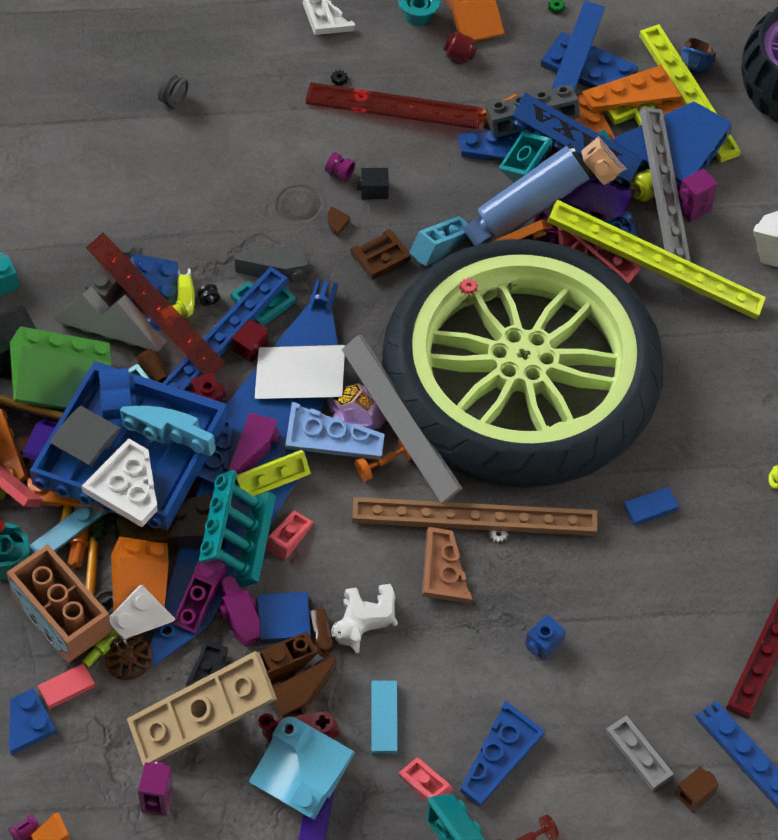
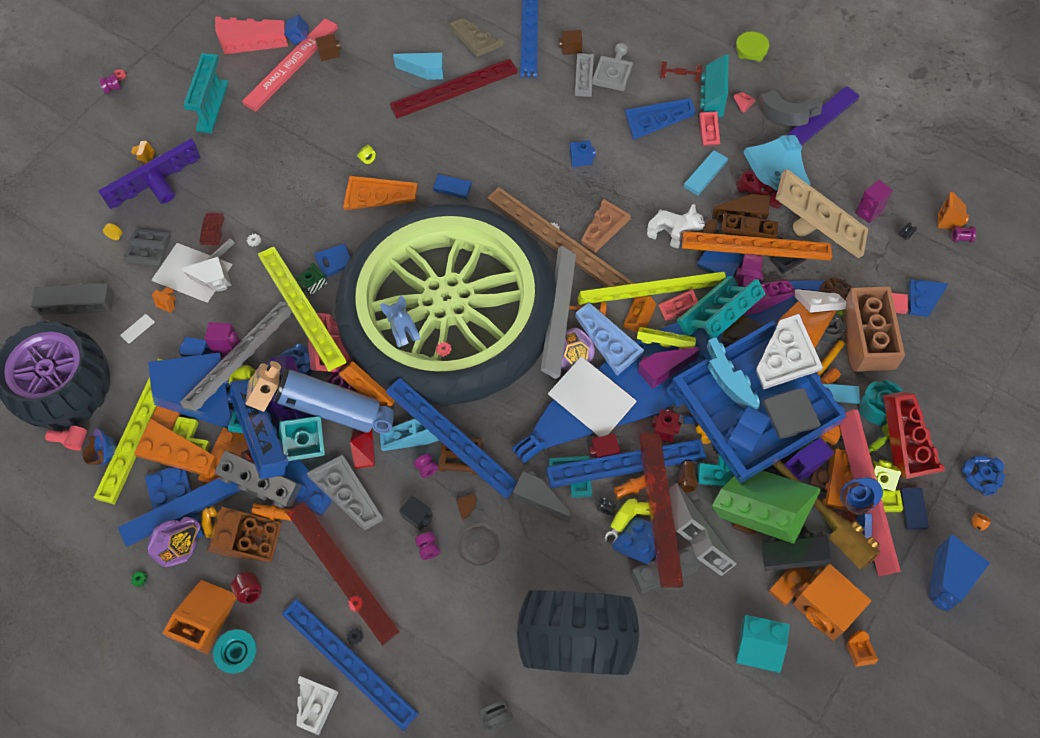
camera: 135 degrees left, 5 degrees up
(94, 790) = (907, 231): none -> black bush
(146, 149) = (578, 632): none -> black wheel
(203, 322) = (630, 487): none -> orange pin
(255, 637) = (757, 245): none -> orange tile
(324, 498) = (639, 313): none -> orange slope
(326, 58) = (350, 665): none -> blue tile
(328, 517) = (650, 288): none -> neon yellow tile
(396, 244) = (452, 437): none -> blue tile
(402, 223) = (426, 465): none -> magenta wheel
(462, 164) = (344, 488): none -> light grey wing
(471, 200) = (362, 449): none -> red slope
(504, 75) = (243, 536): none -> dark orange slope
(521, 264) = (400, 322): none -> medium blue animal
(547, 71) = (206, 521): none -> light orange arm
(551, 22) = (173, 541): none -> medium lavender helmet
(609, 783) = (613, 72): none -> light grey plate
(685, 306) = (311, 280): none -> dark green brick
(686, 352) = (337, 257): none -> blue piece
(722, 175) = (194, 347): none -> blue brick
(727, 438) = (373, 192): none -> orange wing
(732, 52) = (69, 438): none -> coral pin

